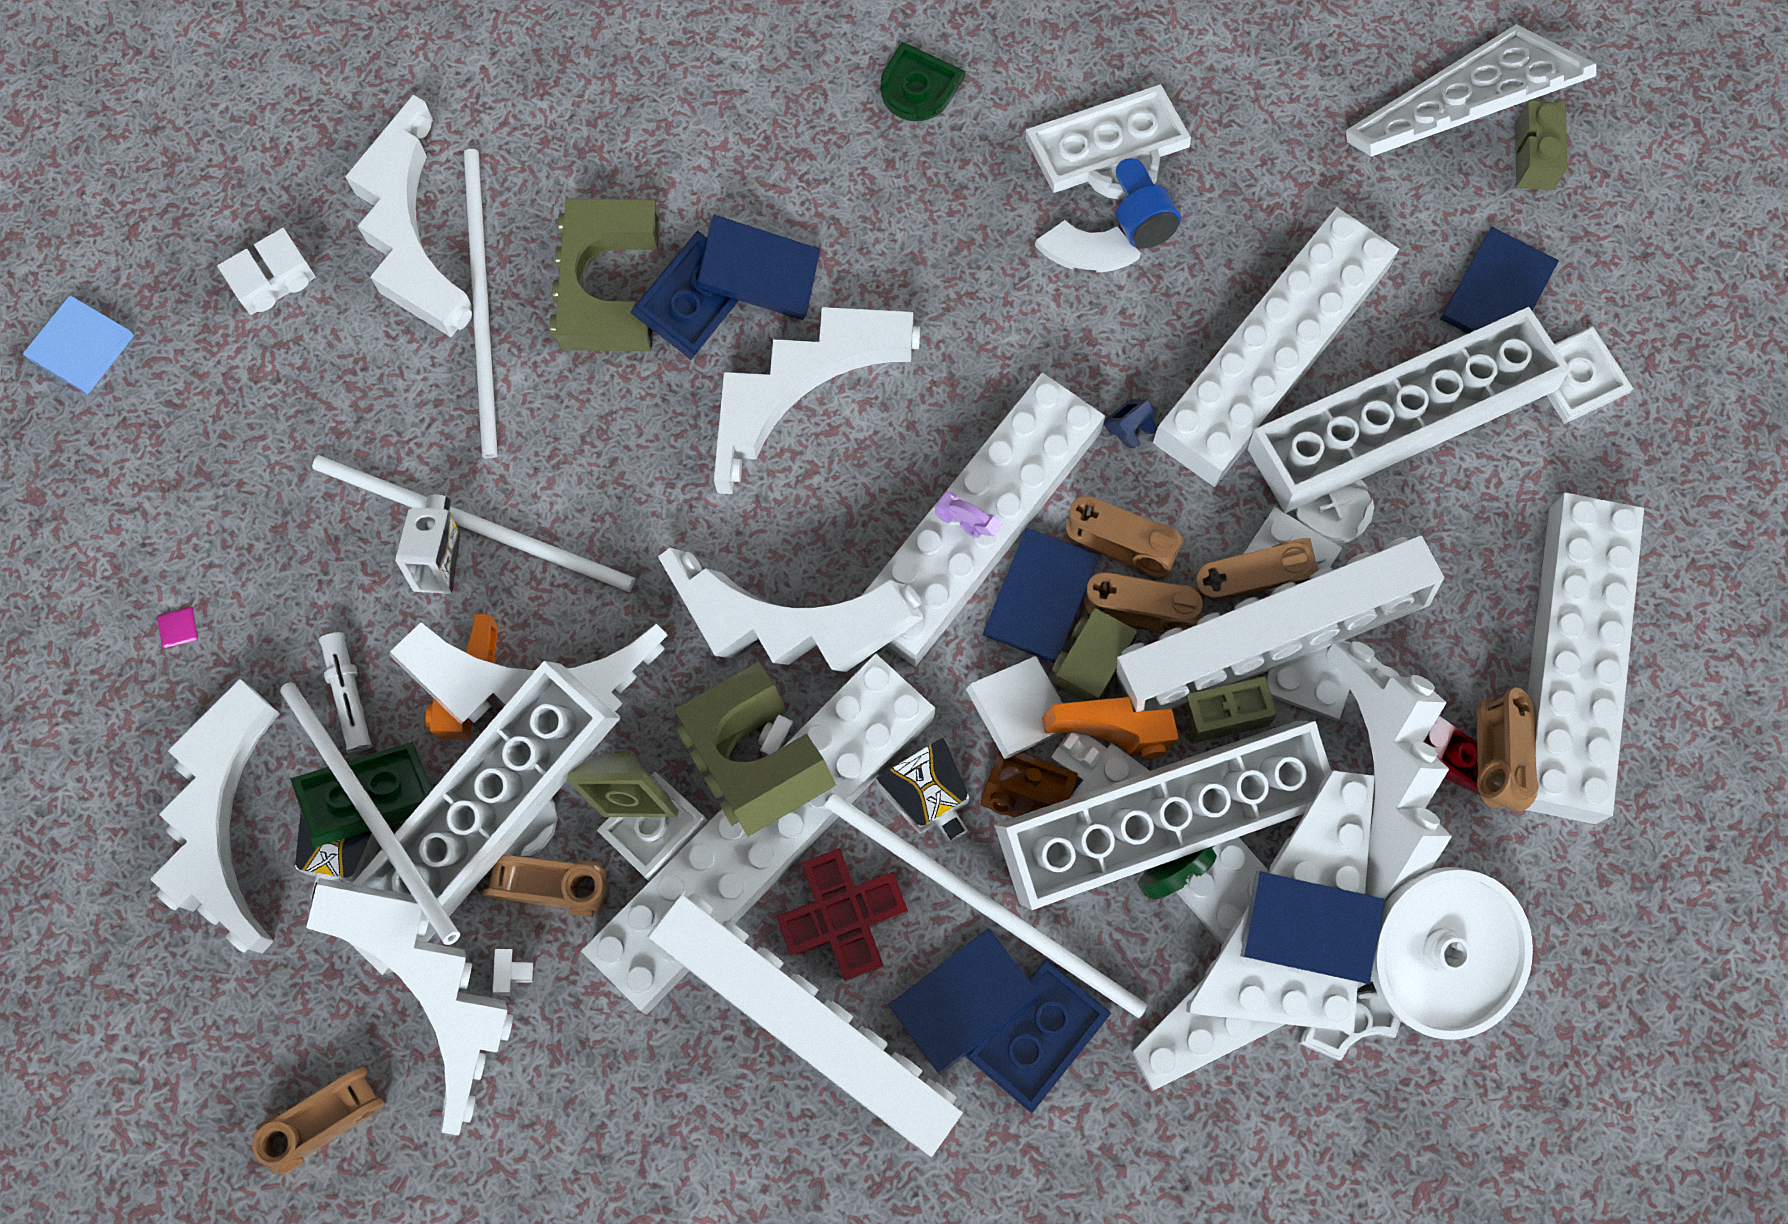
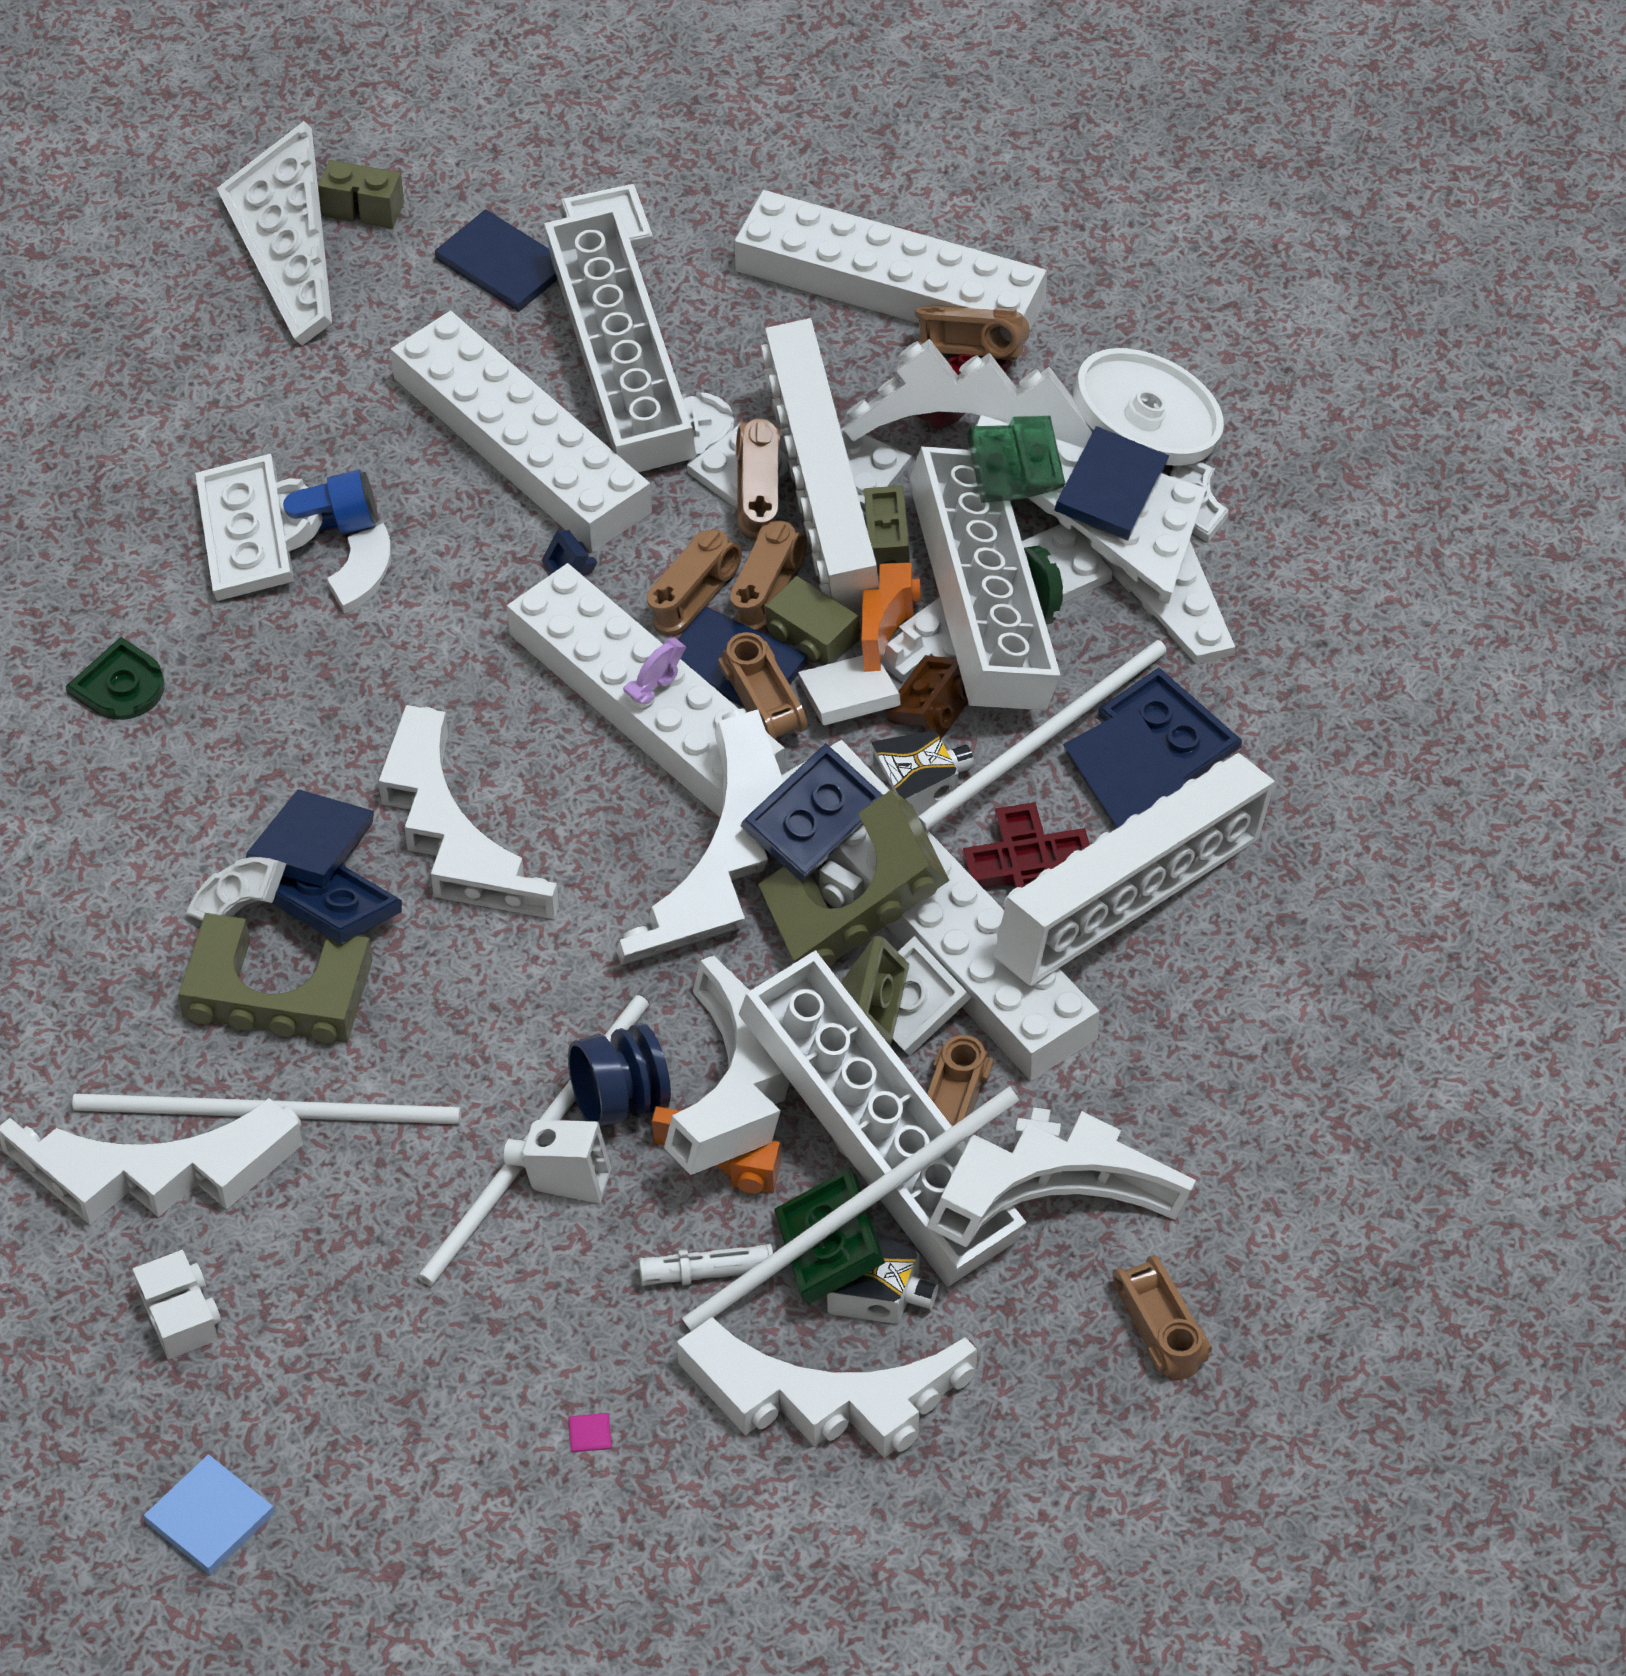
camera: 80 degrees left, 20 degrees down
(512, 569) = (619, 1075): none -> dark blue wheel
(687, 219) = (237, 886): none -> white tile
(820, 693) = (811, 812): none -> dark blue tile
(993, 624) = (761, 684): none -> medium nougat piece
(1313, 820) = (1016, 459): none -> clear green slope

